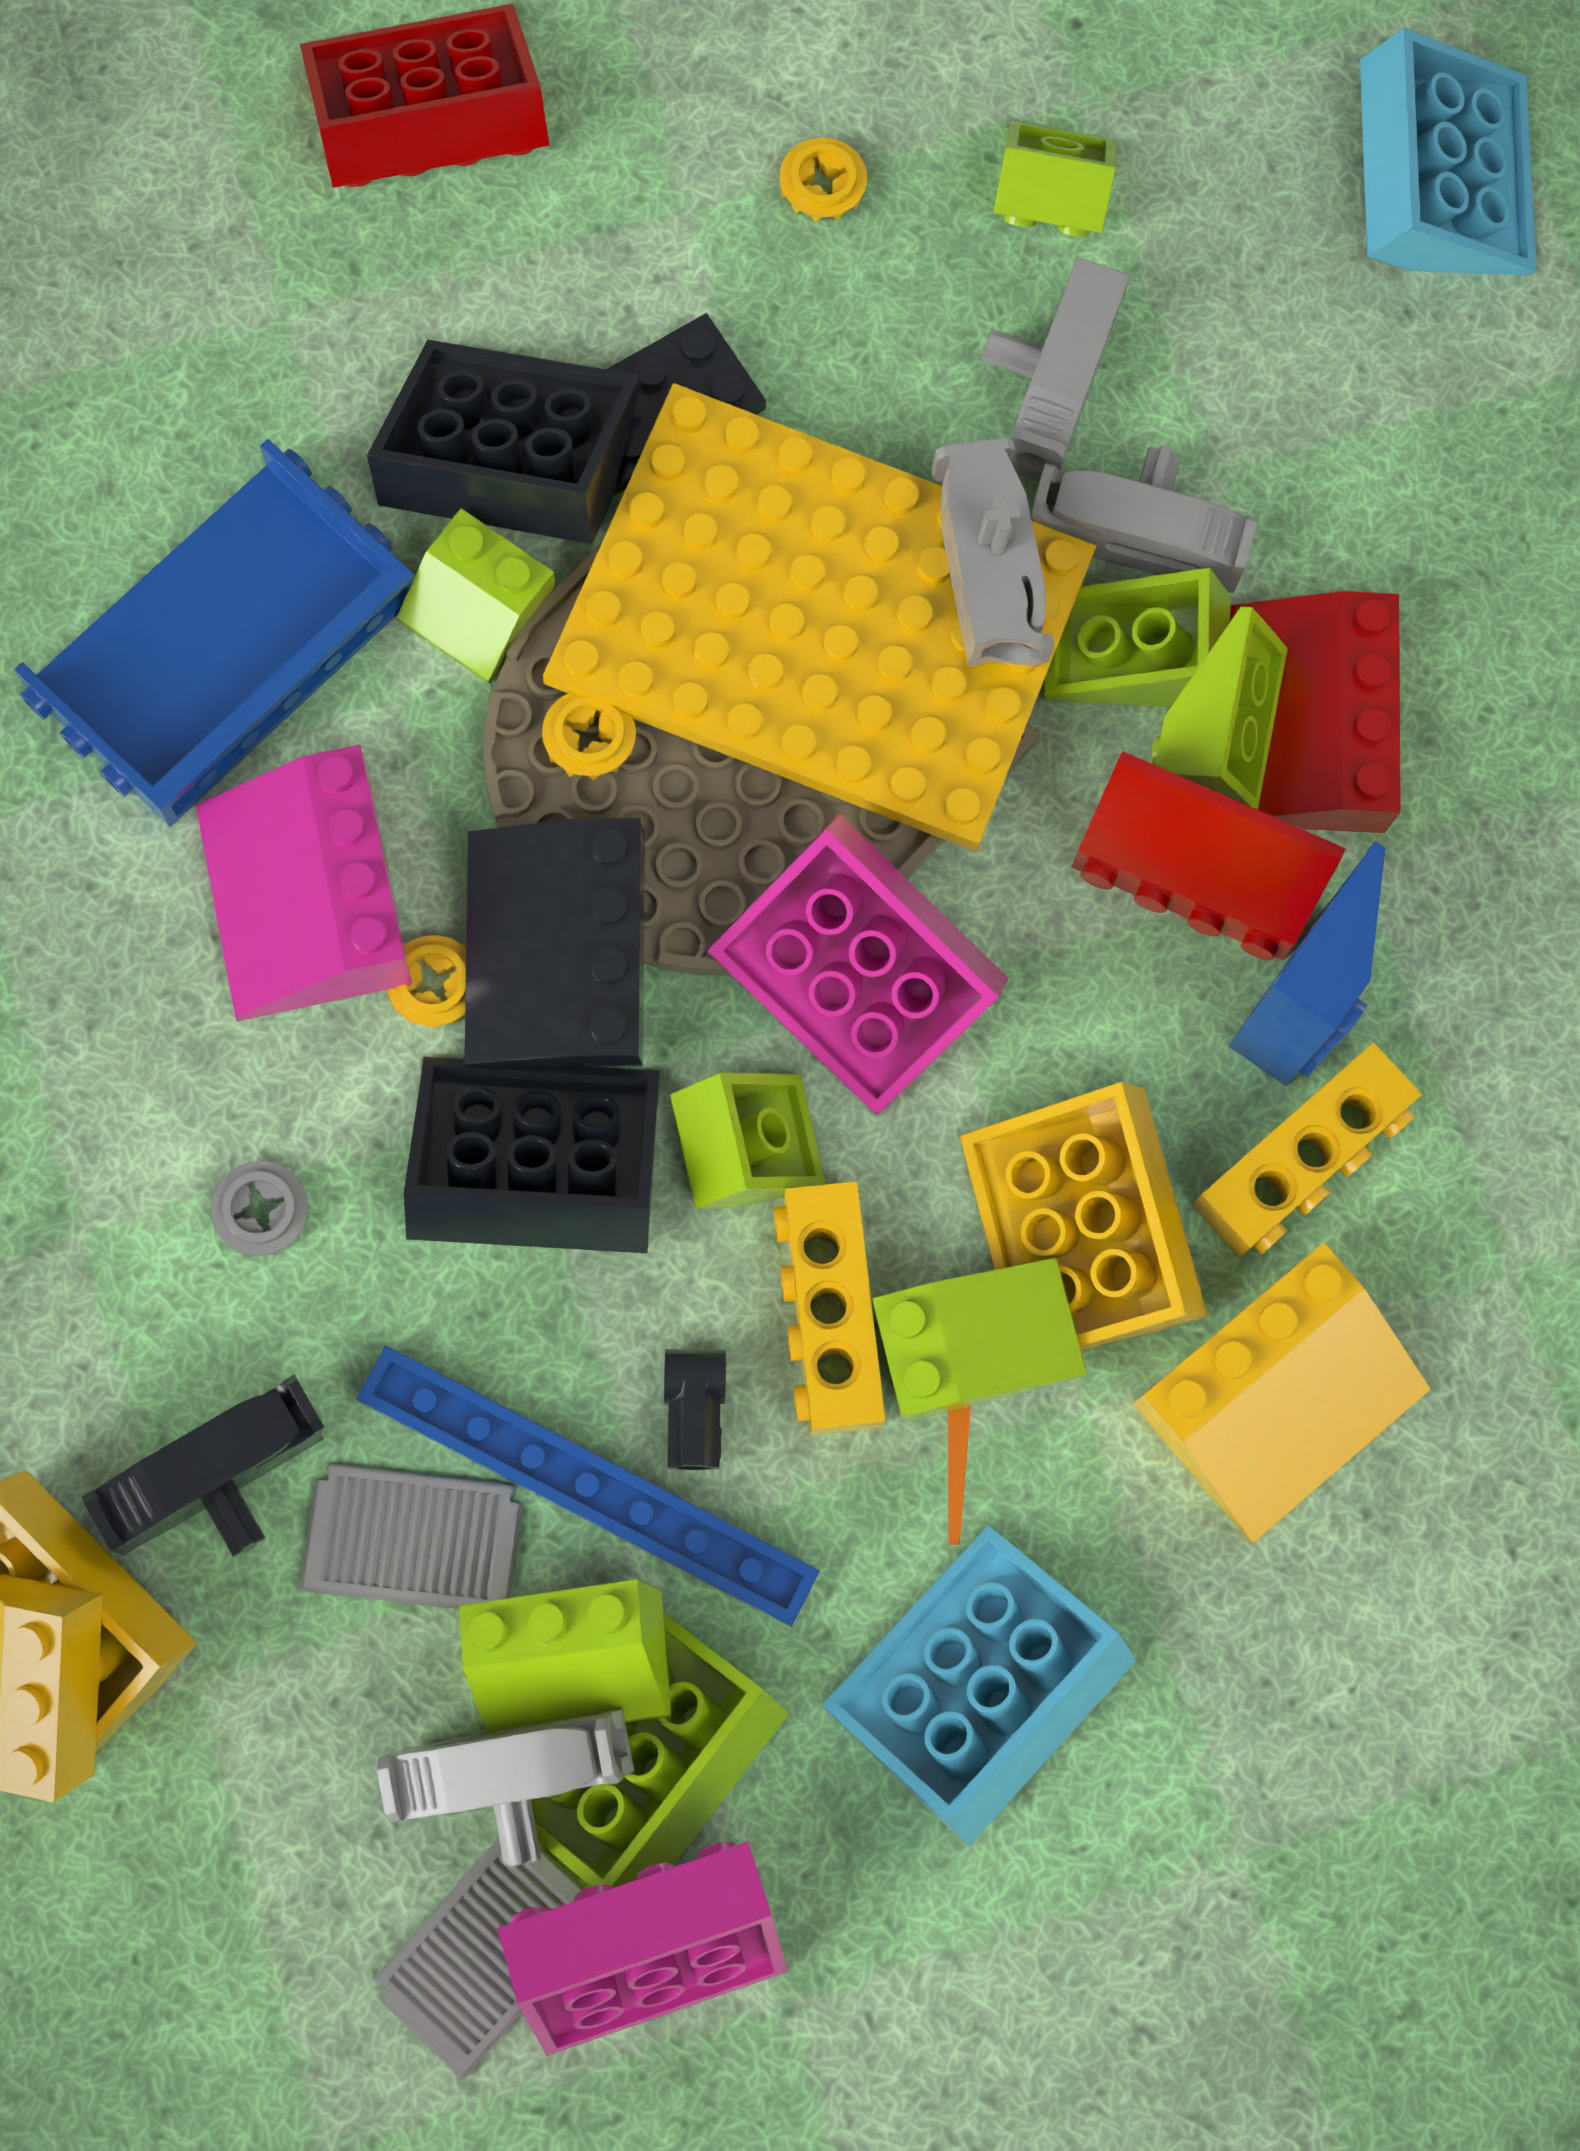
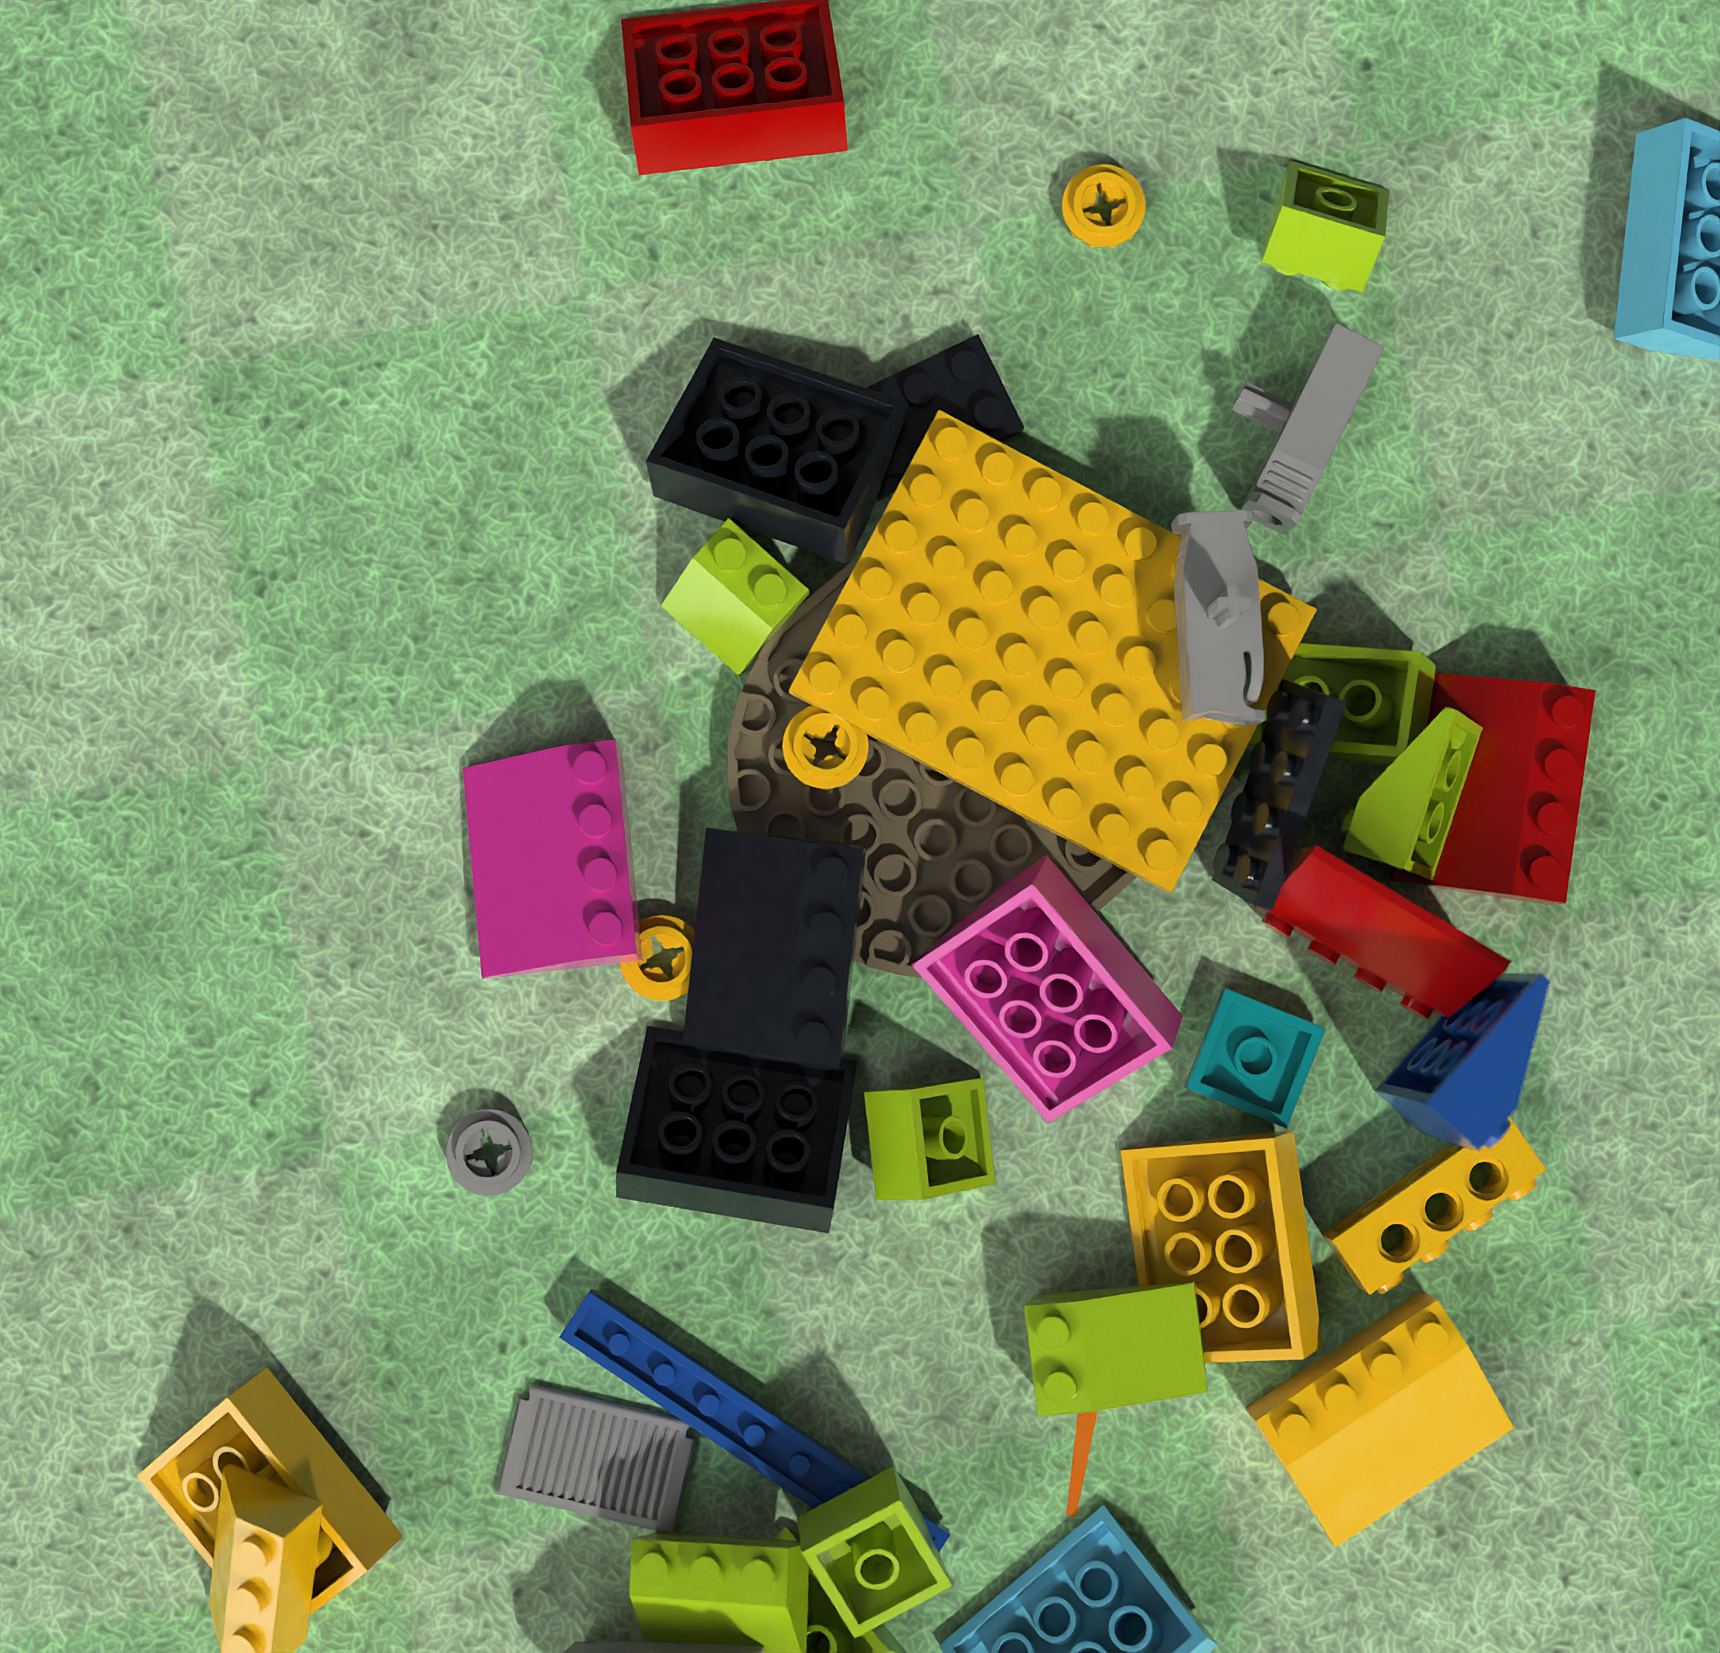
camera: 10 degrees right, 10 degrees up
(207, 1472) = (422, 1391): black piece -> none
(222, 638) = (498, 610): blue panel -> none
(694, 1394) = (856, 1362): black piece -> none
(734, 1587) = (872, 1552): none -> lime slope
(836, 1215) = (999, 1386): yellow brick -> none
(1078, 726) = (1277, 793): none -> black plate
(1092, 1018) = (1254, 1057): none -> teal plate
(1146, 521) = (1367, 588): light grey piece -> none

